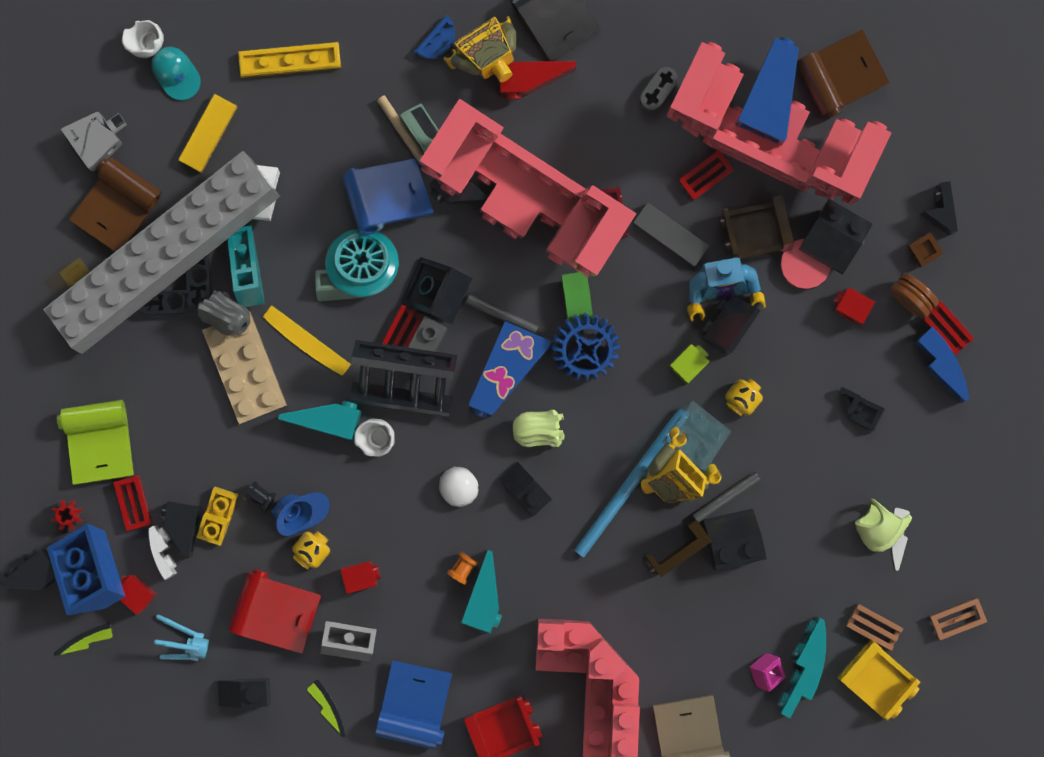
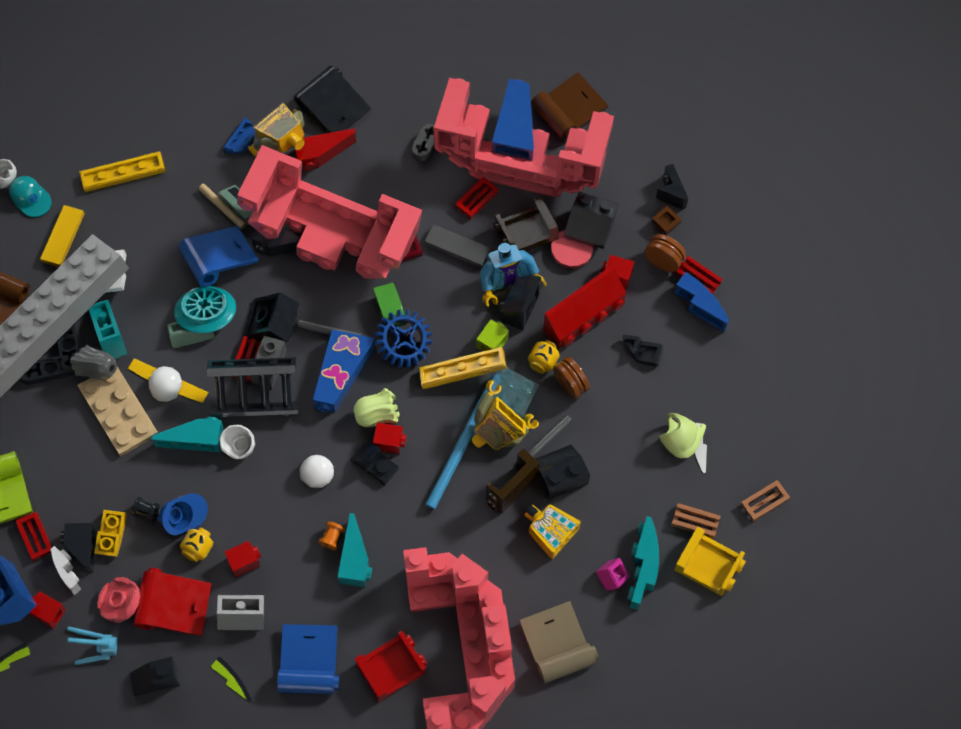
camera: 10 degrees left, 20 degrees down
(216, 598) = (118, 599): none -> coral tile
(303, 346) = (165, 383): none -> white hair
(548, 465) = (389, 438): none -> red brick
(647, 396) = (462, 368): none -> yellow tile
(710, 607) = (551, 528): none -> torso
(770, 433) = (571, 377): none -> dark orange head
(804, 350) = (584, 308): none -> red slope

